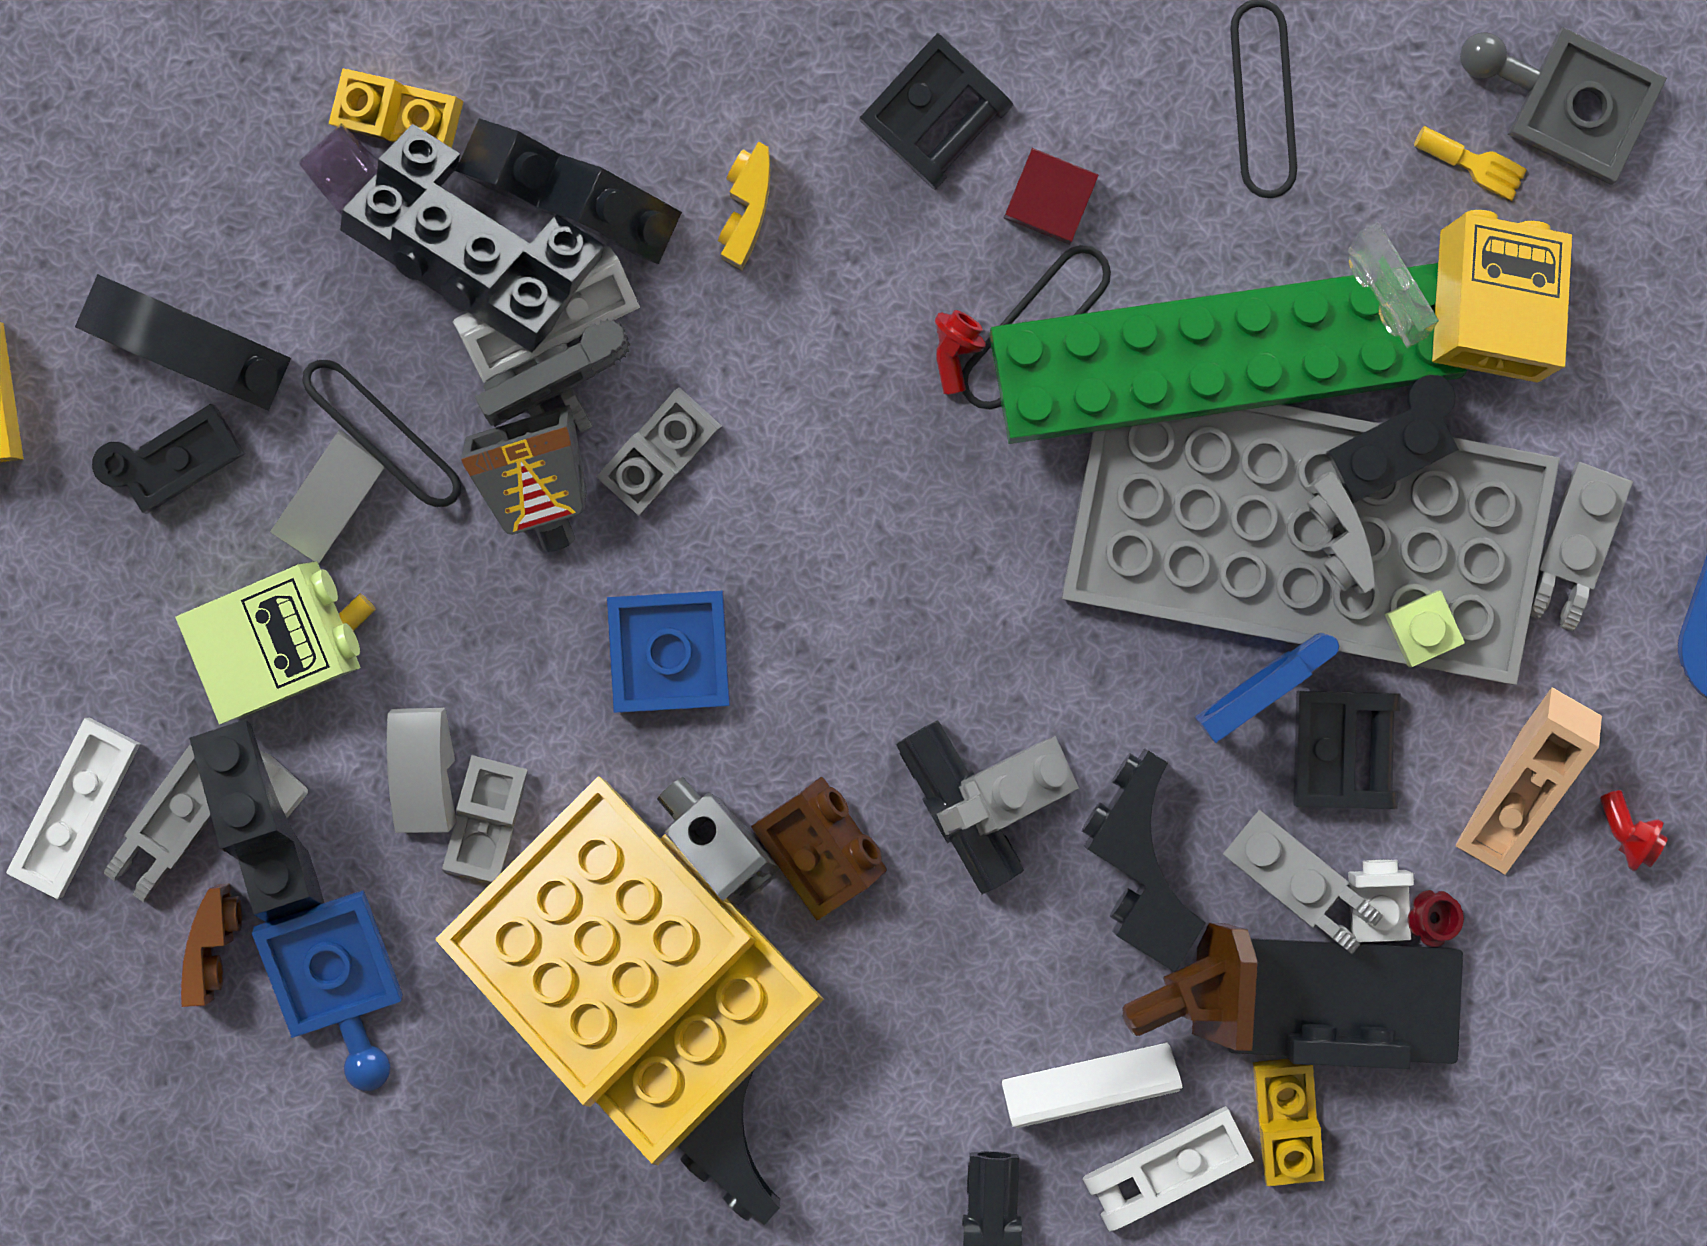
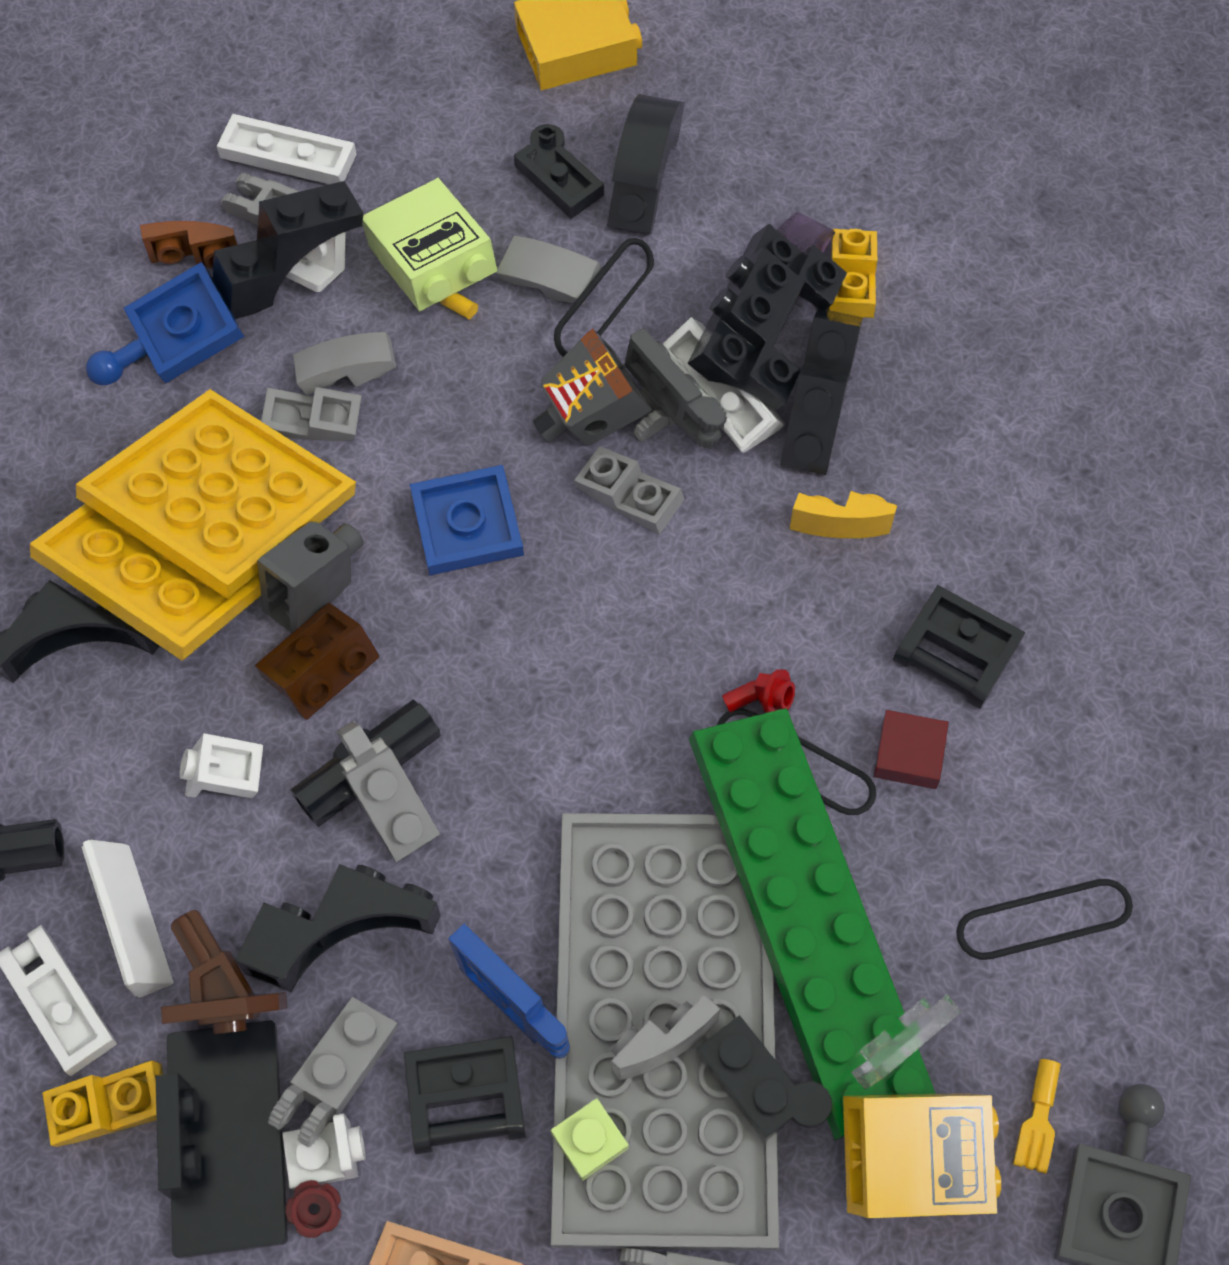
camera: 80 degrees right, 25 degrees down
(936, 969) = (222, 766): none -> white bracket

